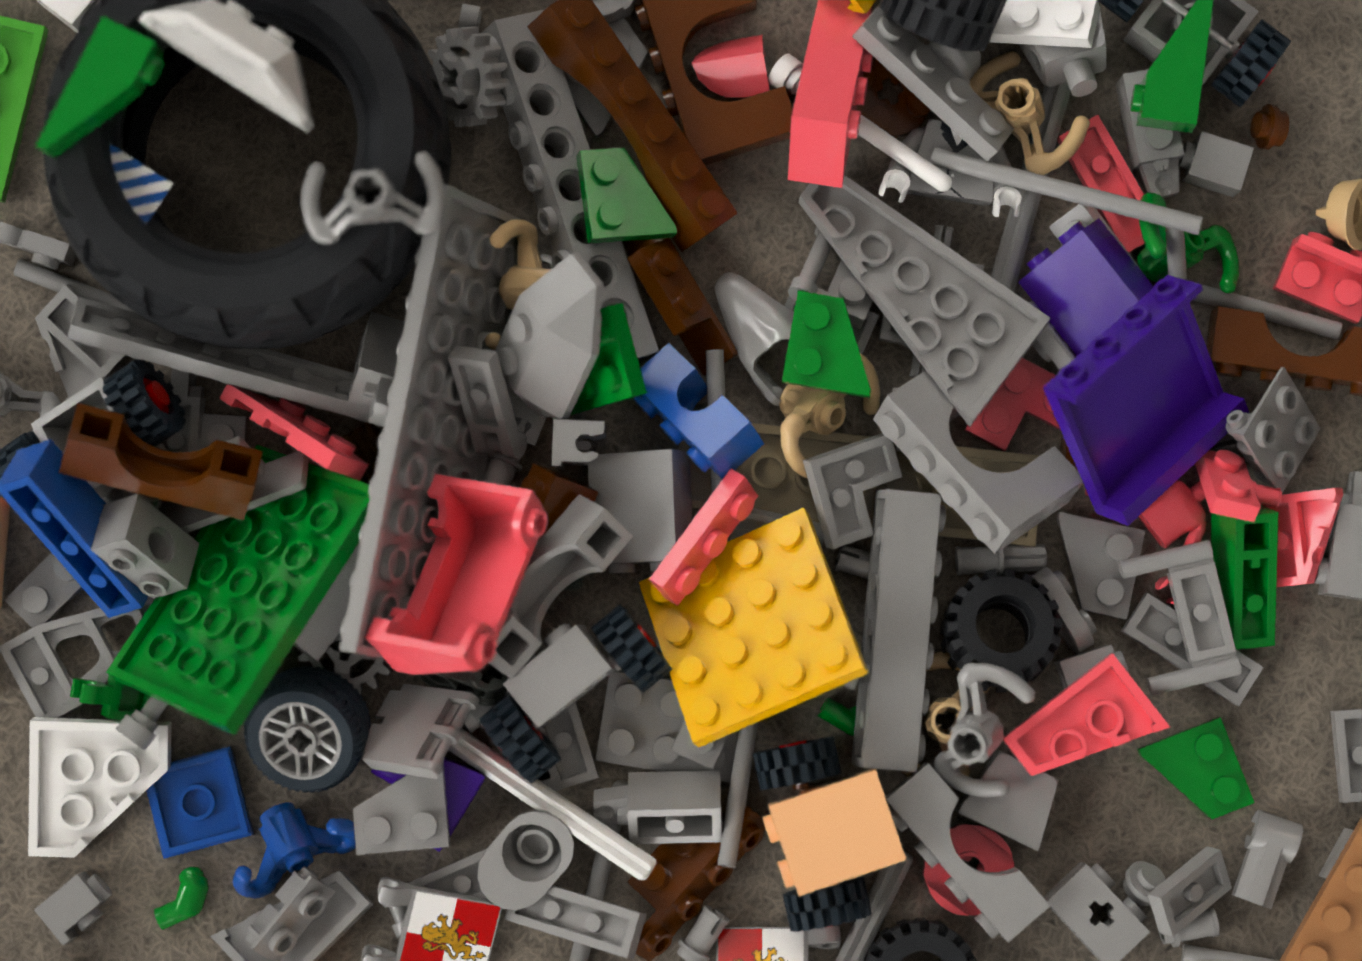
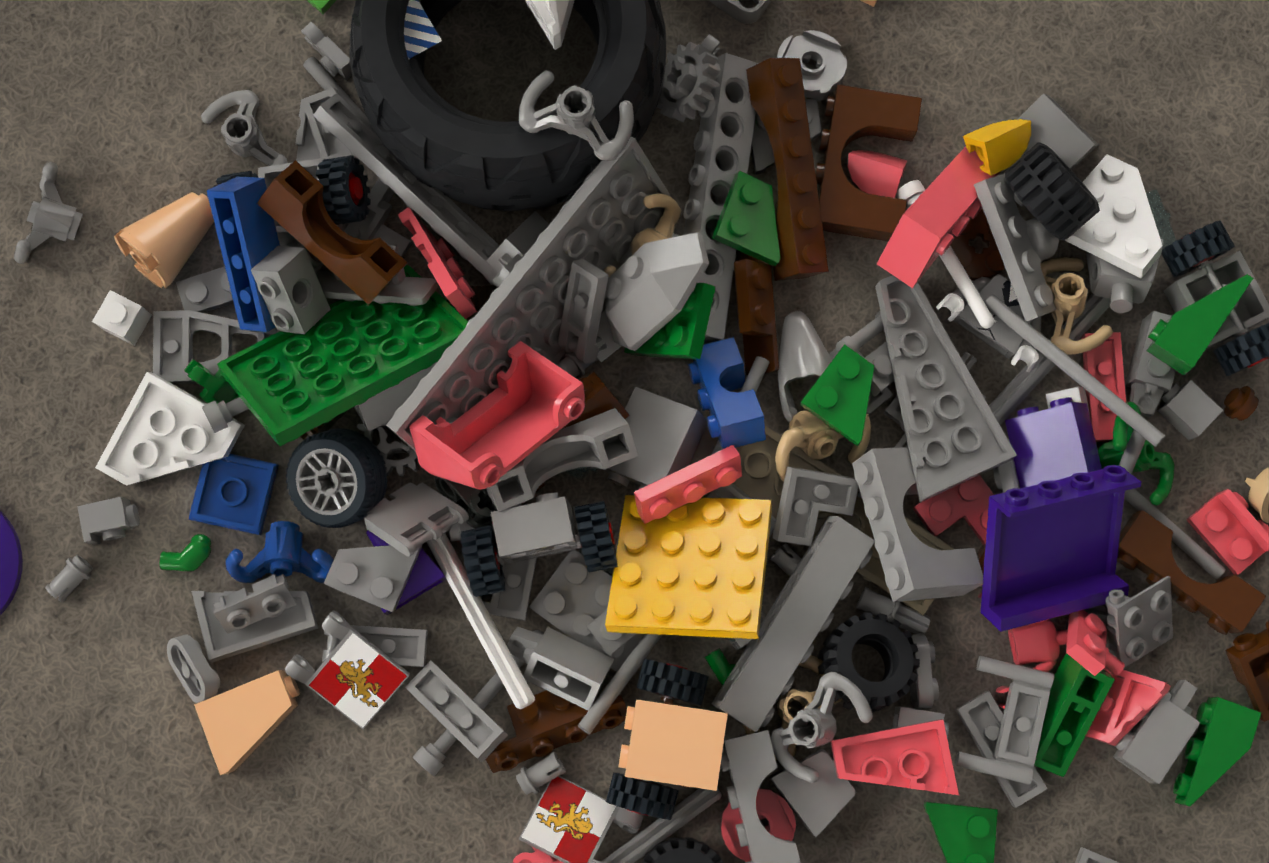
camera: 25 degrees right, 5 degrees down
(525, 860) = (441, 651): light grey piece -> none
(568, 441) = (630, 370): light grey hinge -> none
(1093, 560) = (960, 648): light grey wing -> none

